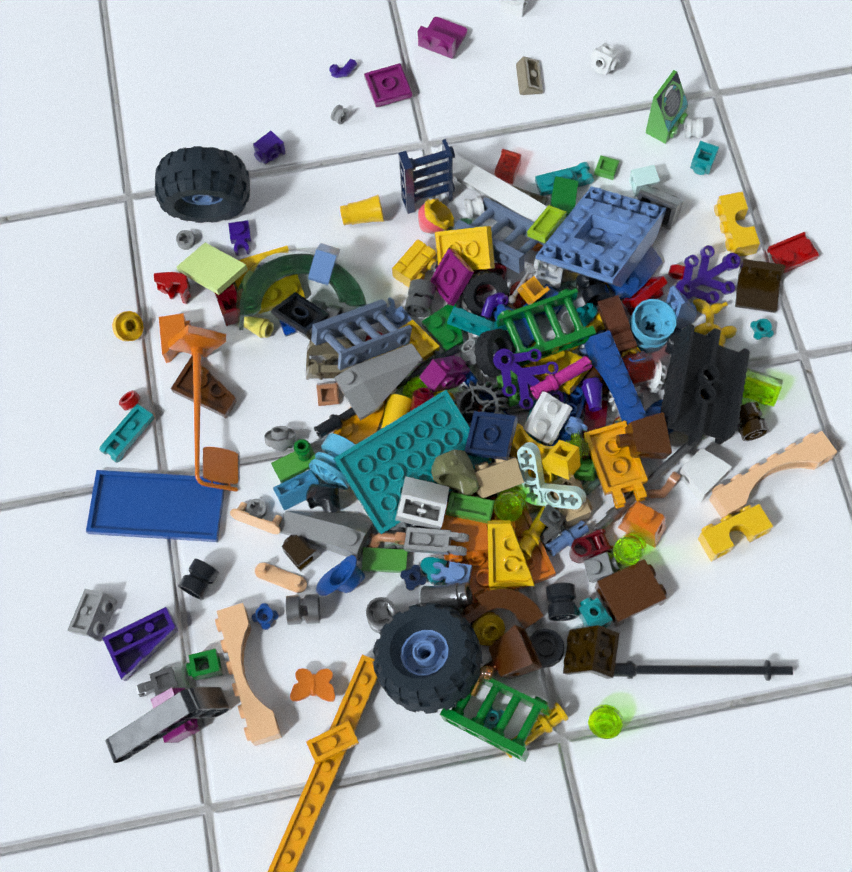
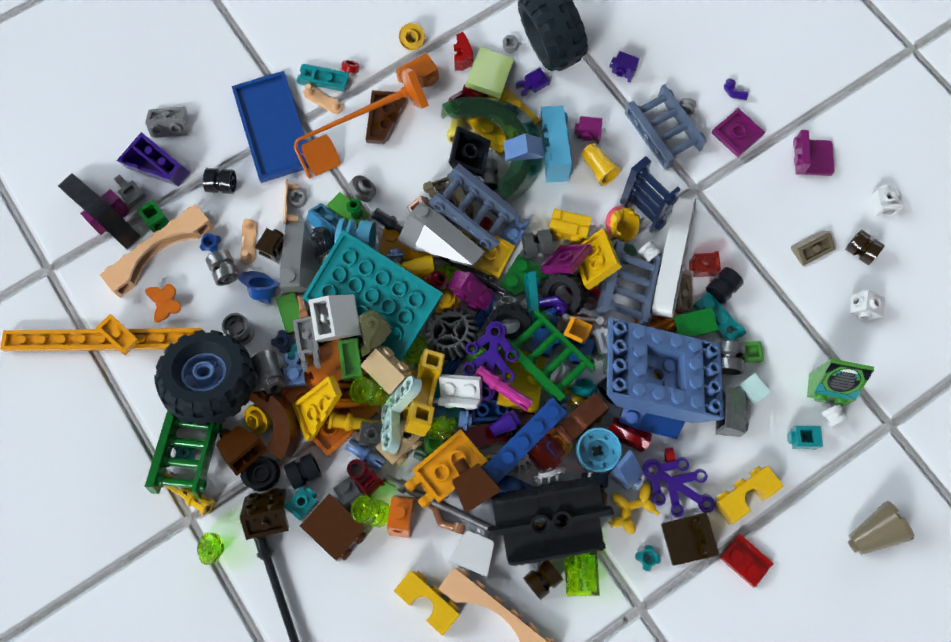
camera: 65 degrees right, 5 degrees up
(151, 444) = (322, 99): none -> light nougat piece
(308, 234) = (556, 144): none -> medium azure wedge
(320, 205) = (589, 128): none -> magenta brick
(354, 157) = (656, 141): none -> sand blue fence
(372, 428) = (396, 255): none -> medium blue plate
(485, 673) = (209, 429): clear orange hand -> none
(491, 435) = (416, 348): dark blue plate -> none
(536, 159) = (724, 284): none -> black wheel
(546, 224) = (652, 316): lime tile -> none
(550, 36) = (865, 247): none -> dark brown wheel
(606, 181) = (731, 357): none -> flat silver wheel
(807, 137) = (881, 530): none -> dark tan cone

